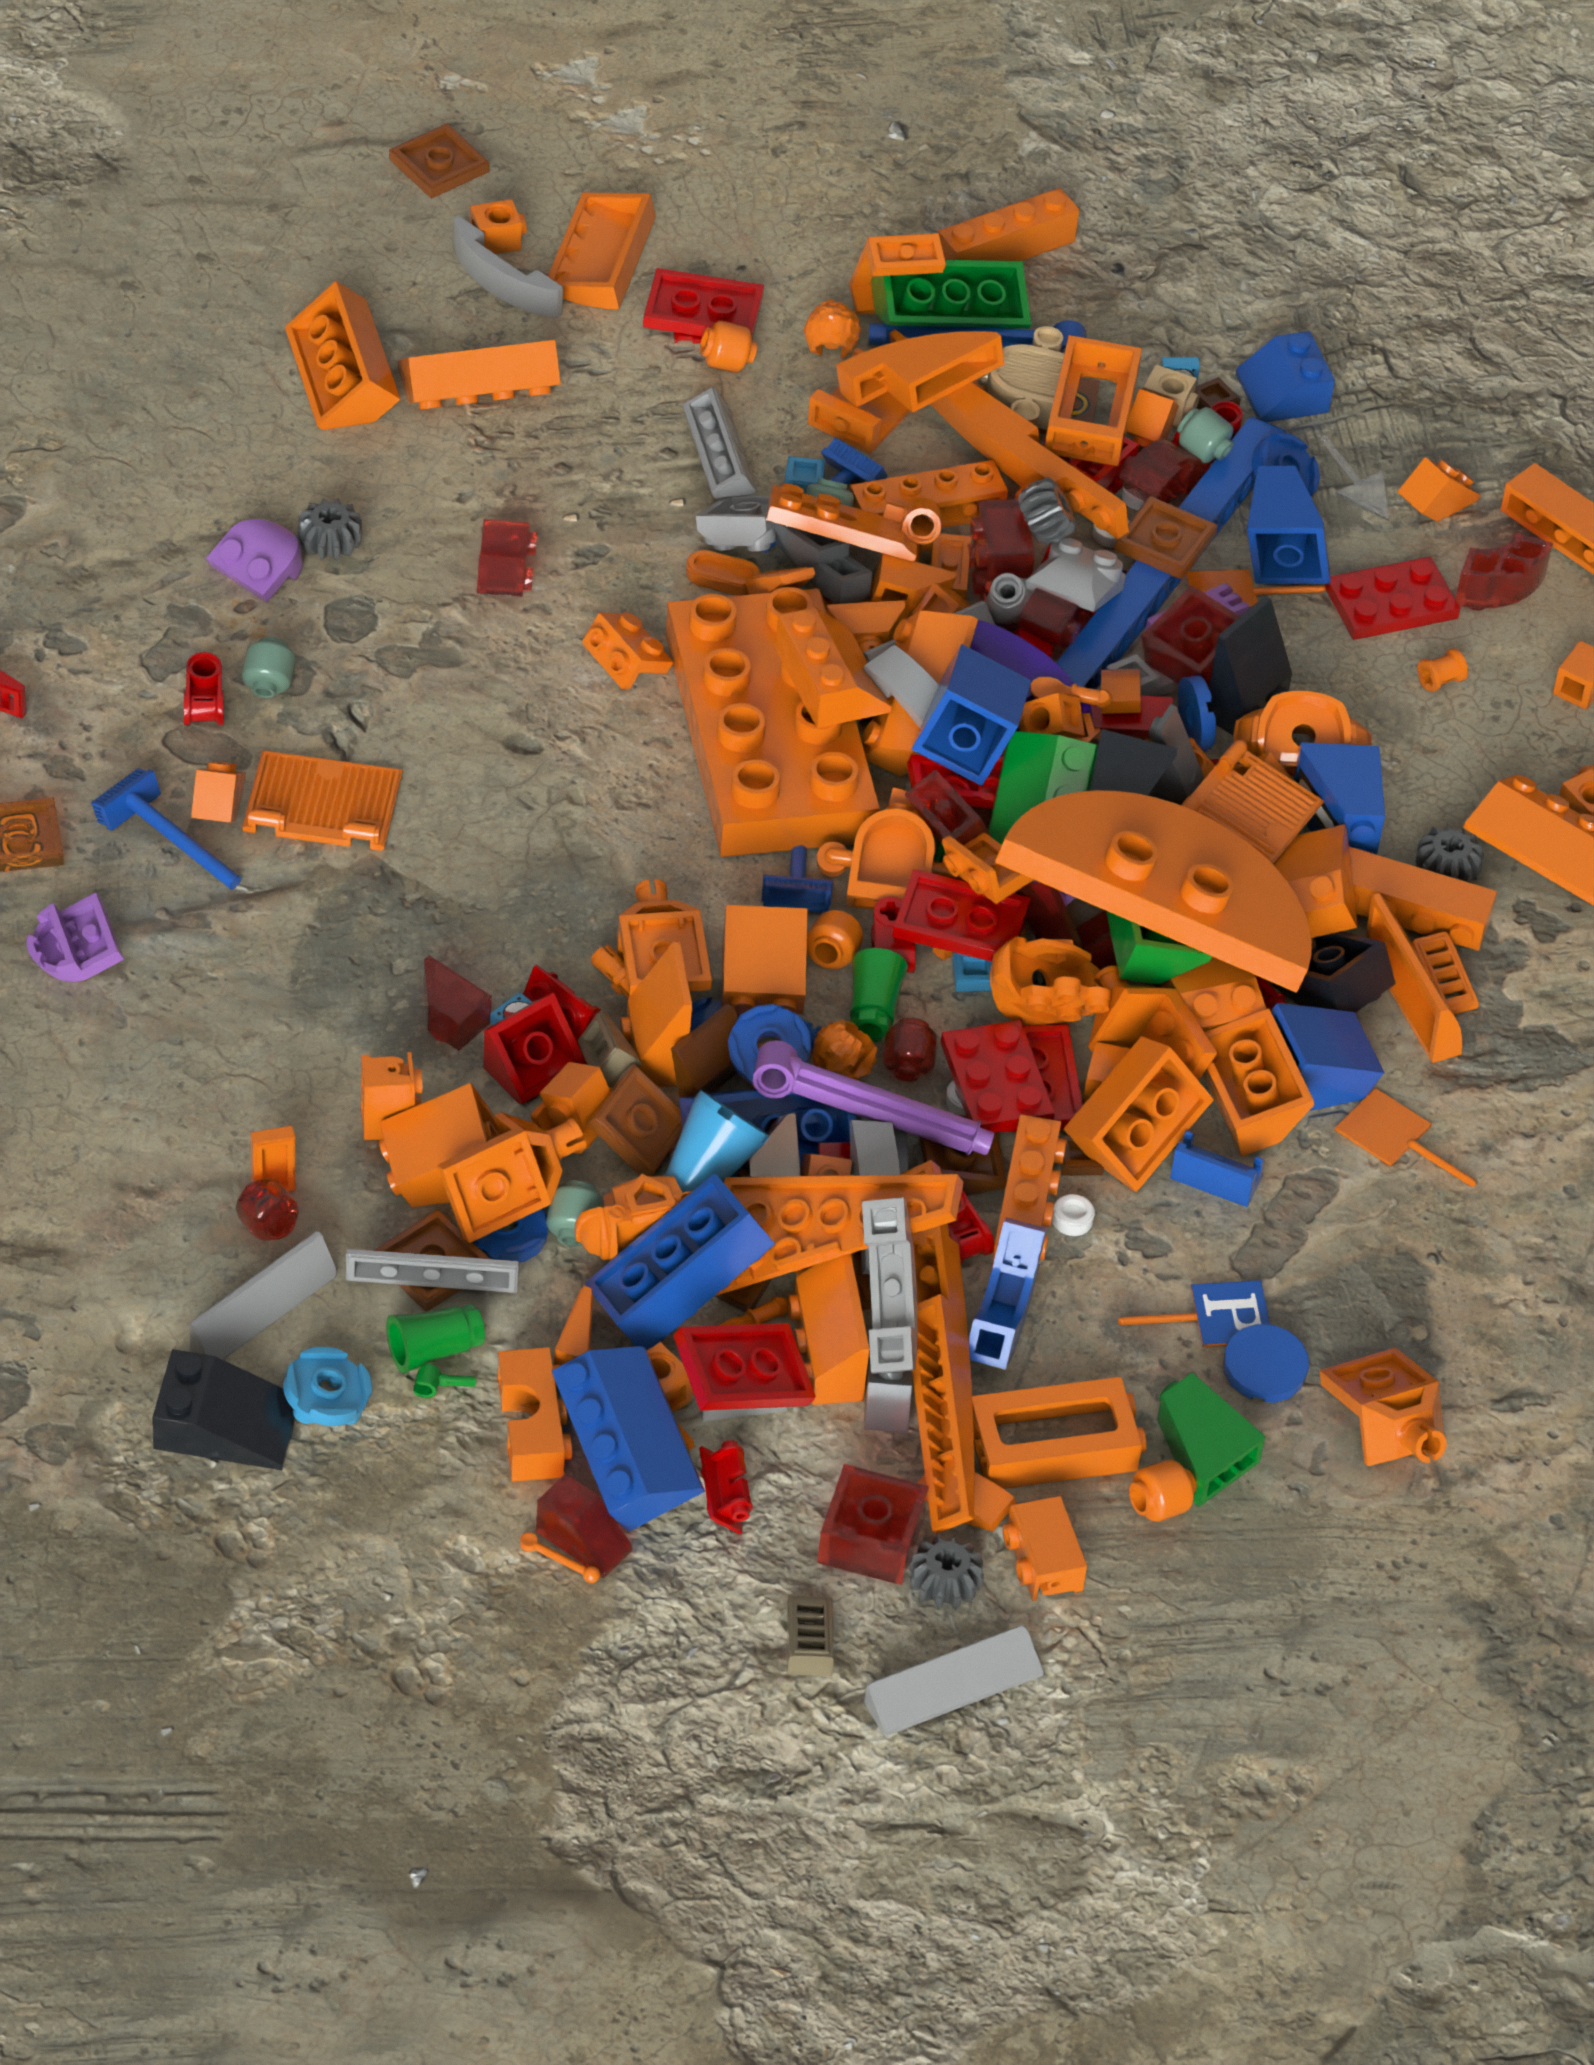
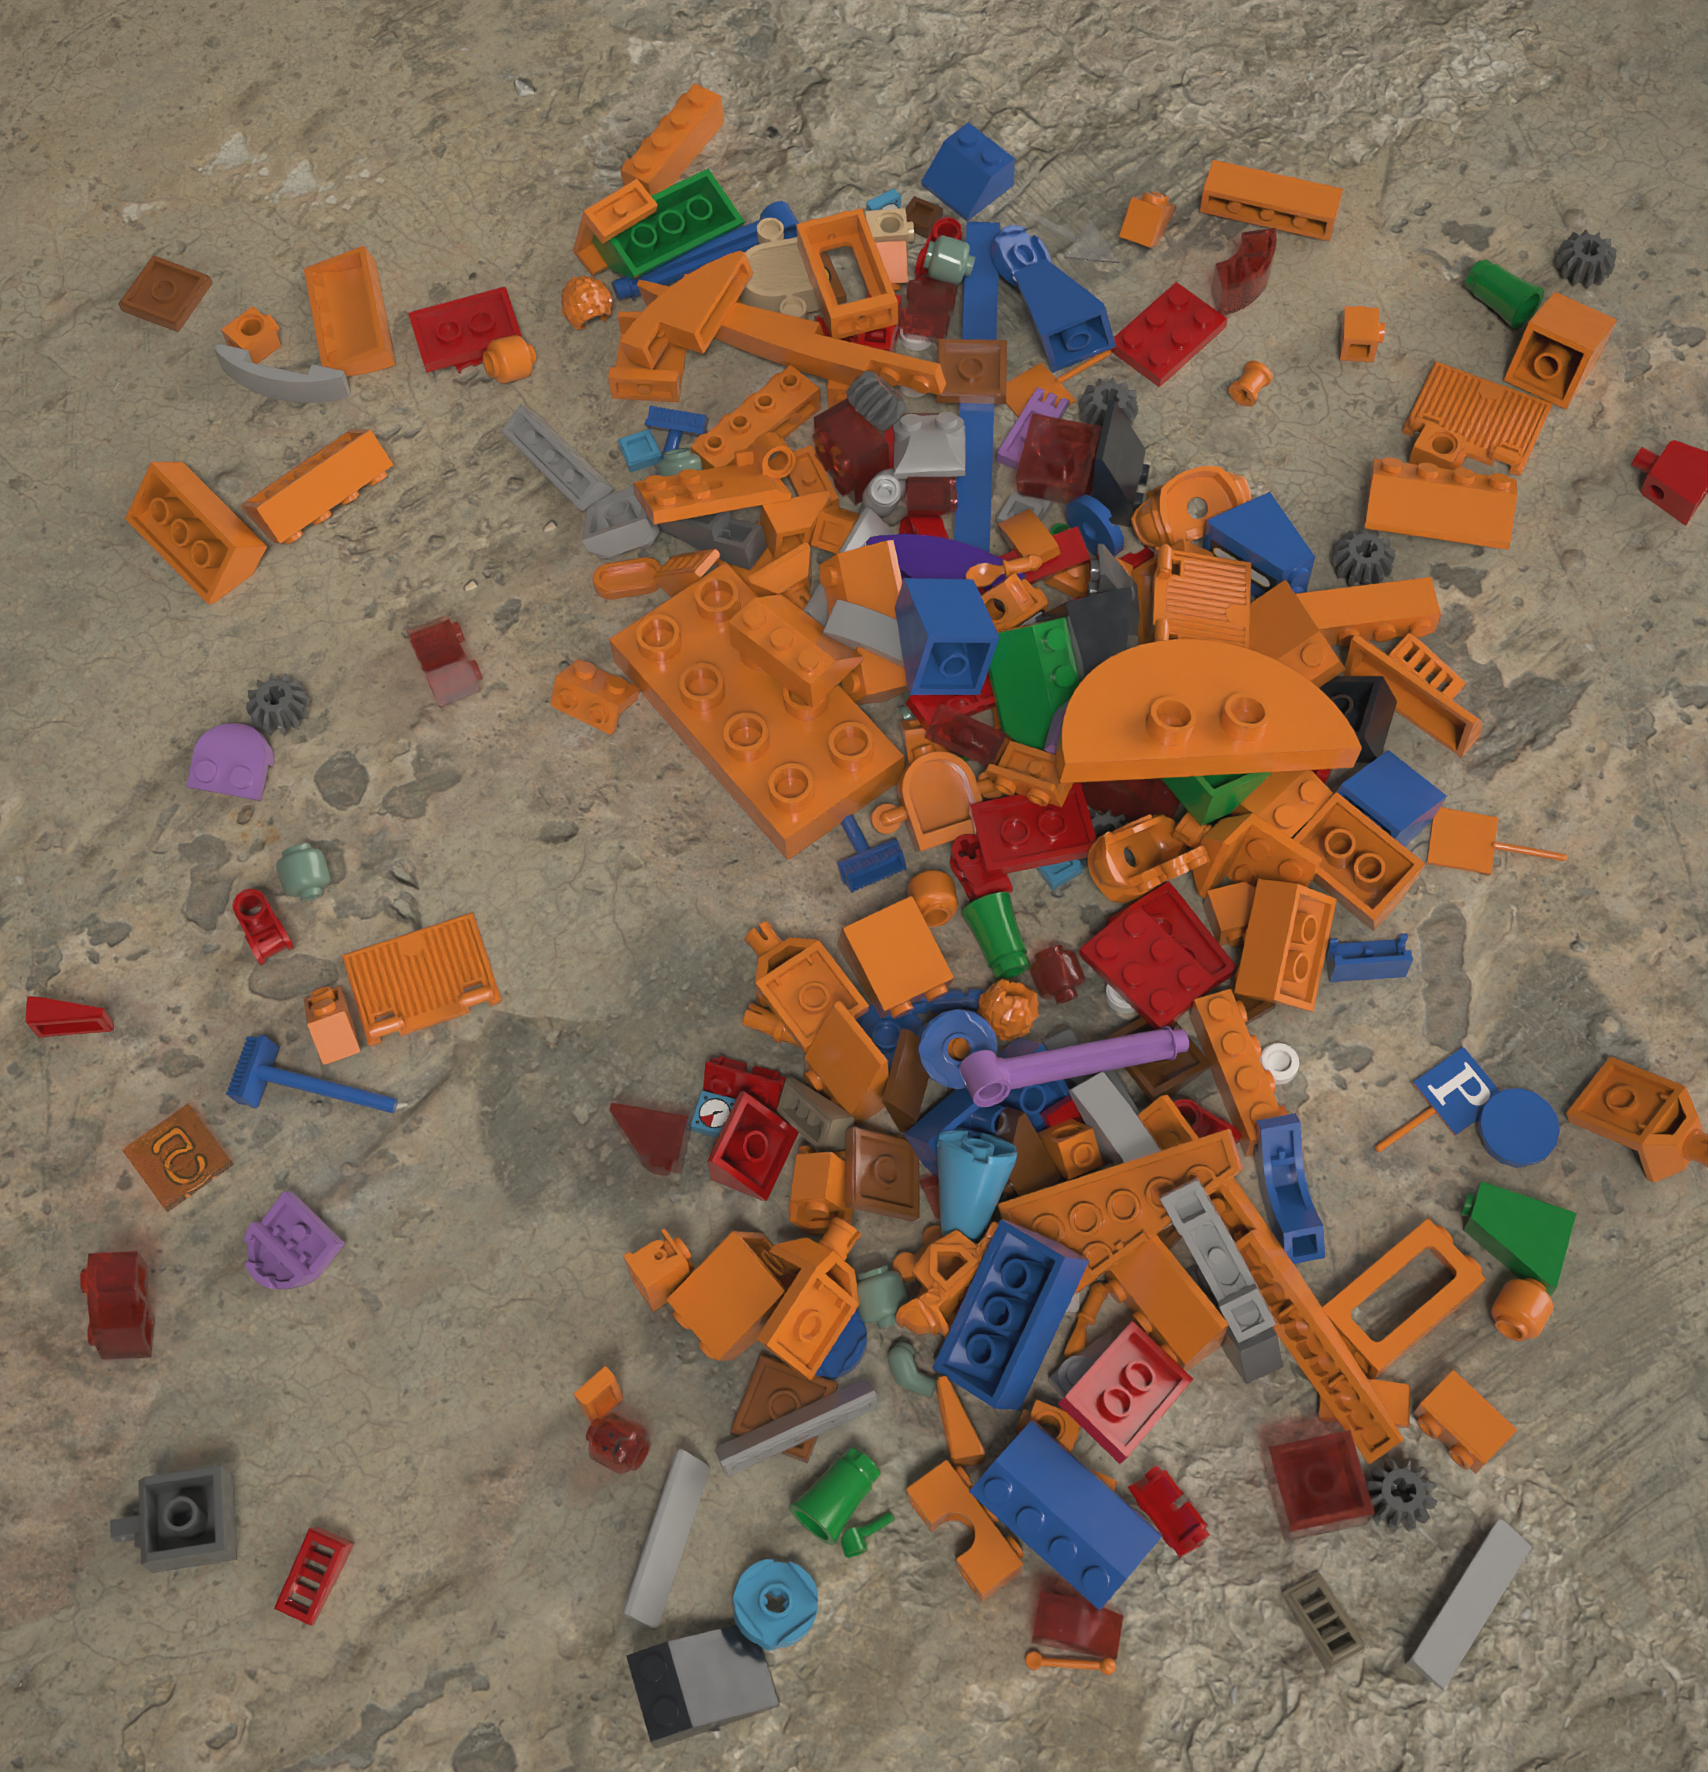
camera: 20 degrees left, 15 degrees up
(559, 1281) = (906, 1372): none -> sand green arm
(1296, 626) = (1096, 398): none -> dark grey gear

